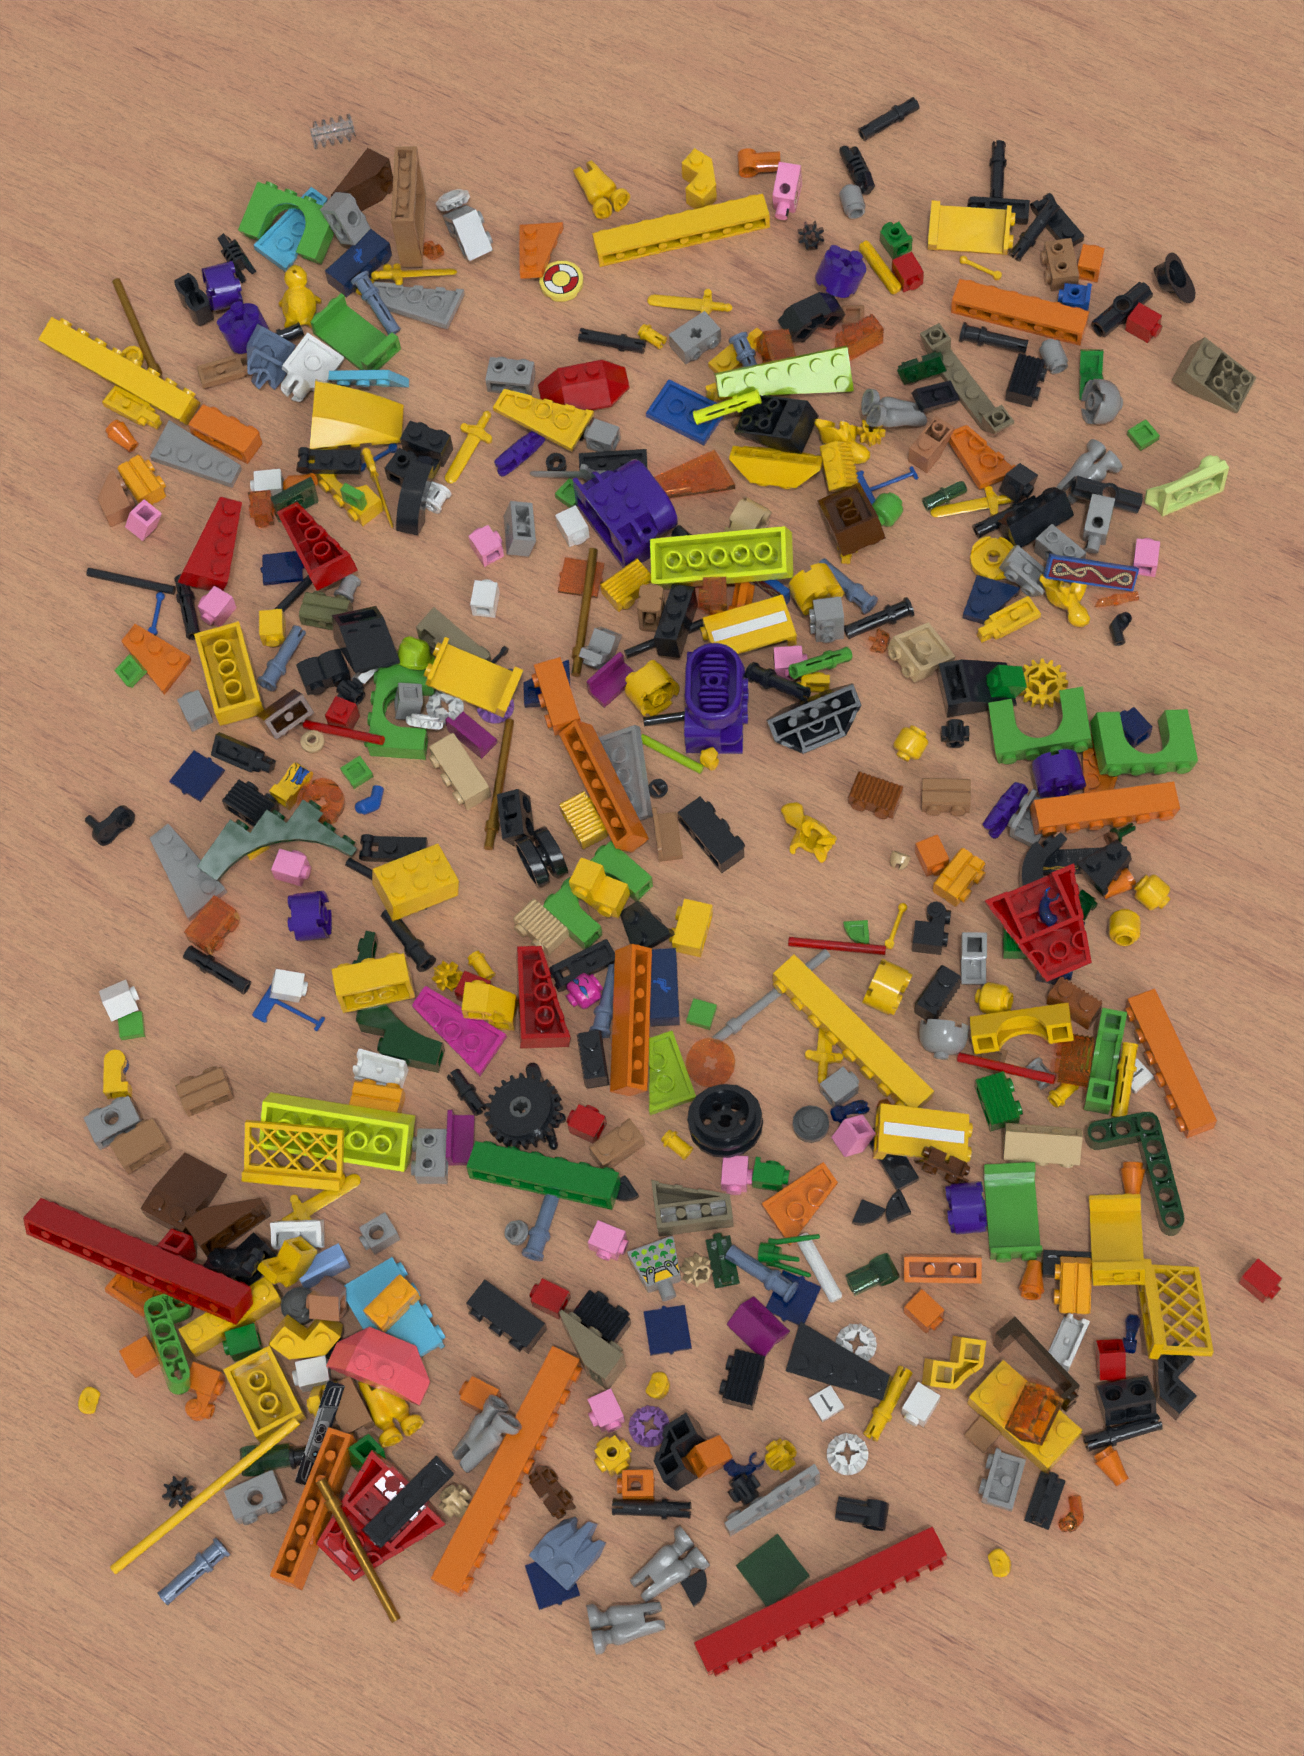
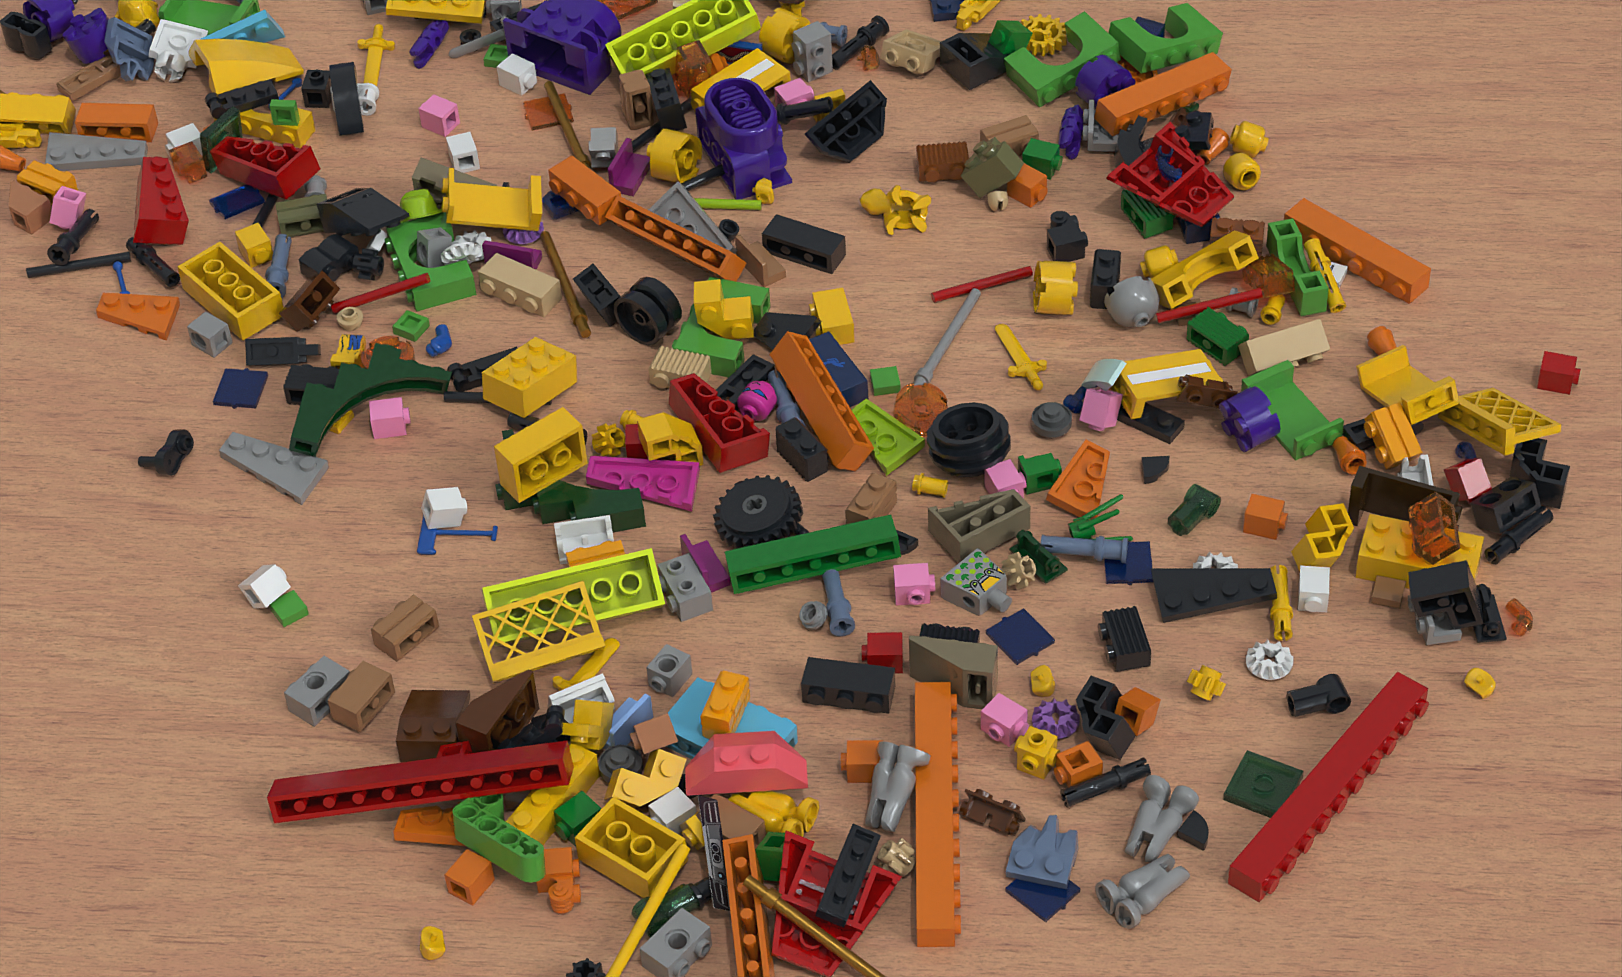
camera: 30 degrees left, 20 degrees down
(115, 1075) = (295, 650): yellow leg -> none
(129, 558) = (69, 242): none -> black pin
(130, 671) = (120, 329): bright green tile -> none
(209, 965) = (385, 528): black pin -> none
(212, 925) = (332, 490): clear orange brick -> none
(216, 607) = (183, 246): bright pink brick -> none
(309, 916) = (434, 442): dark purple brick -> none
(342, 713) = (369, 278): red brick -> none
(368, 458) = (288, 93): yellow sword -> none
(427, 441) = (322, 55): black brick -> none
(466, 1092) = (687, 525): black pin -> none
(519, 528) = (466, 89): light grey brick -> none
(583, 820) = (672, 273): yellow brick -> none
(586, 1123) = (828, 502): red brick -> none
(624, 586) = (598, 98): yellow brick -> none
(734, 1469) = (1173, 716): clear blue arm -> none
(744, 1488) = (1188, 723): black gear -> none
(757, 1326) = (1107, 594): magenta panel -> none
(778, 1497) = (1227, 718): light grey wing -> none
(820, 1270) = (1141, 528): white axle -> none
(826, 1403) = (1220, 629): white tile -> none
(828, 660) = (830, 82): bright green pin -> none
(839, 1087) = (1059, 381): light grey brick -> none
(851, 1034) = (1036, 332): yellow brick -> none
(857, 931) = (993, 266): bright green tile -> none
(865, 1111) = (1104, 373): none -> light aqua slope
(897, 1207) = (1179, 453): black tile -> none
(902, 907) = (1024, 235): yellow hinge -> none
(907, 826) = (991, 166): none -> olive brick
(910, 743) = (950, 114): yellow head -> none
(943, 1268) = (1259, 473): orange brick -> none
(955, 733) = (986, 93): black gear -> none
(959, 877) = (1064, 189): light orange brick -> none
(961, 830) = (1043, 157): none -> green brick
(973, 958) = (1116, 233): light grey brick -> none
(1009, 1477) = (1448, 590): none -> black brick
(1110, 1463) = (1527, 563): orange cone -> none
(1150, 1161) = (1377, 308): dark green beam -> none

